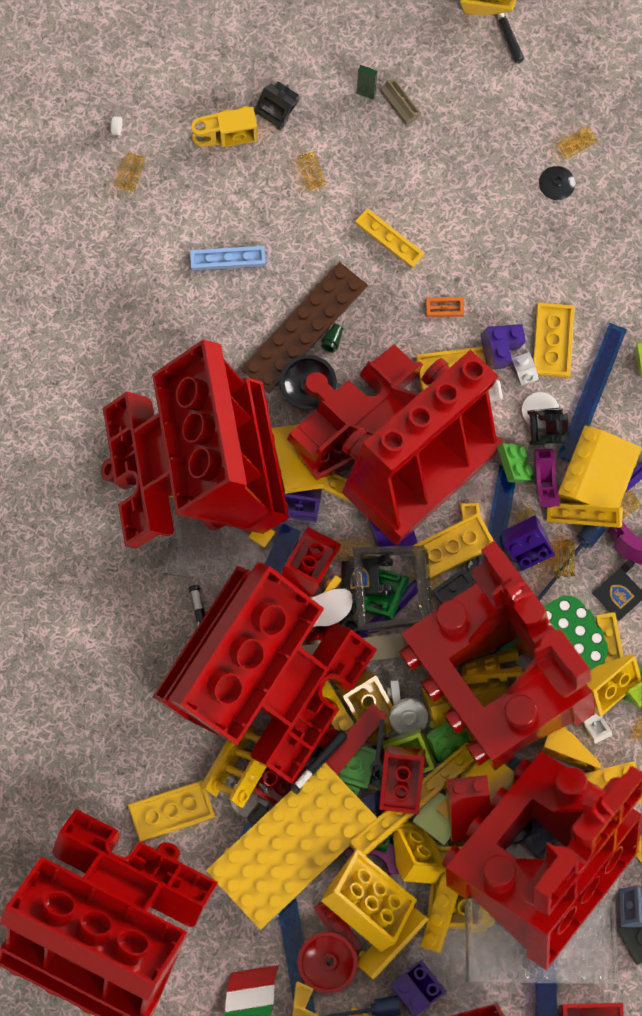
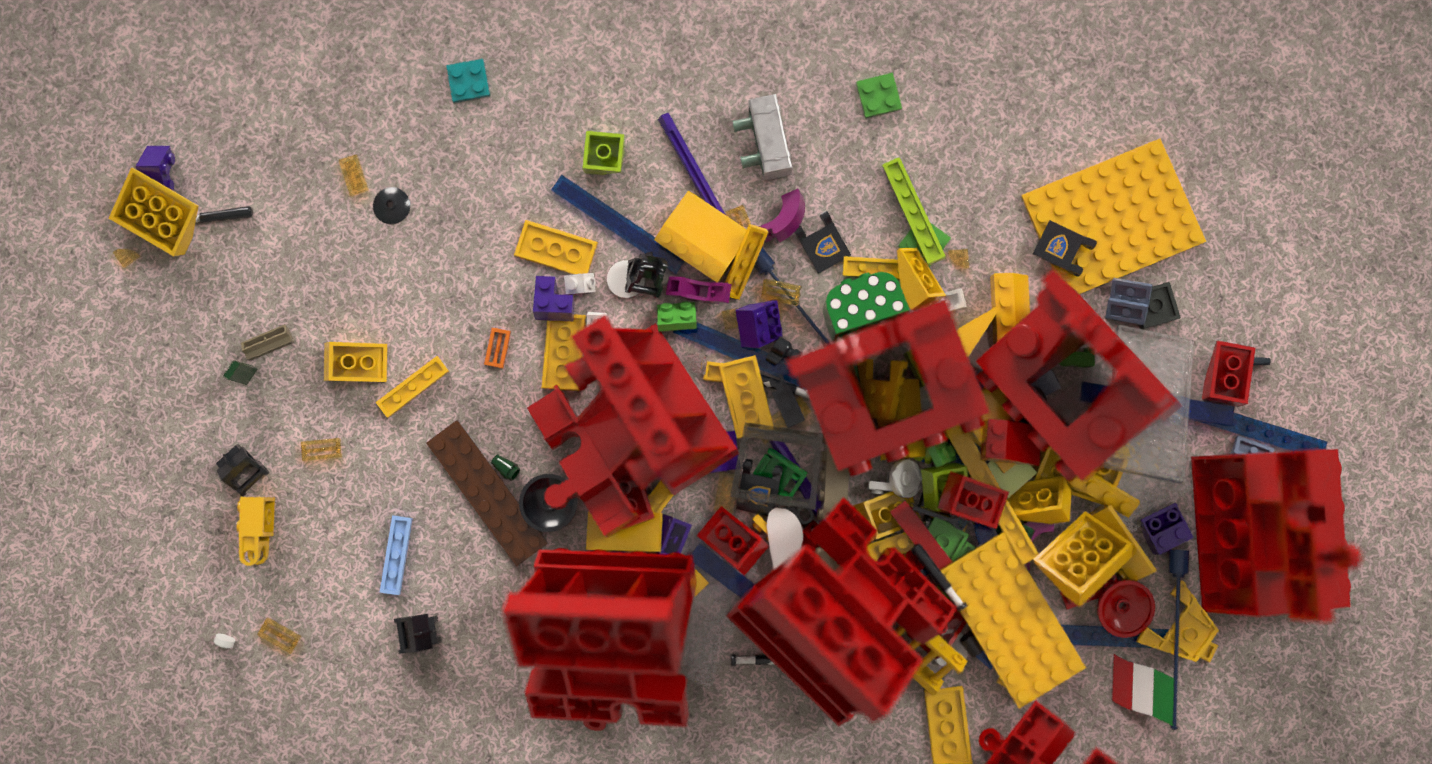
camera: 75 degrees left, 10 degrees up
(160, 293) = (421, 633): none -> black piece
(400, 182) = (355, 362): none -> yellow slope

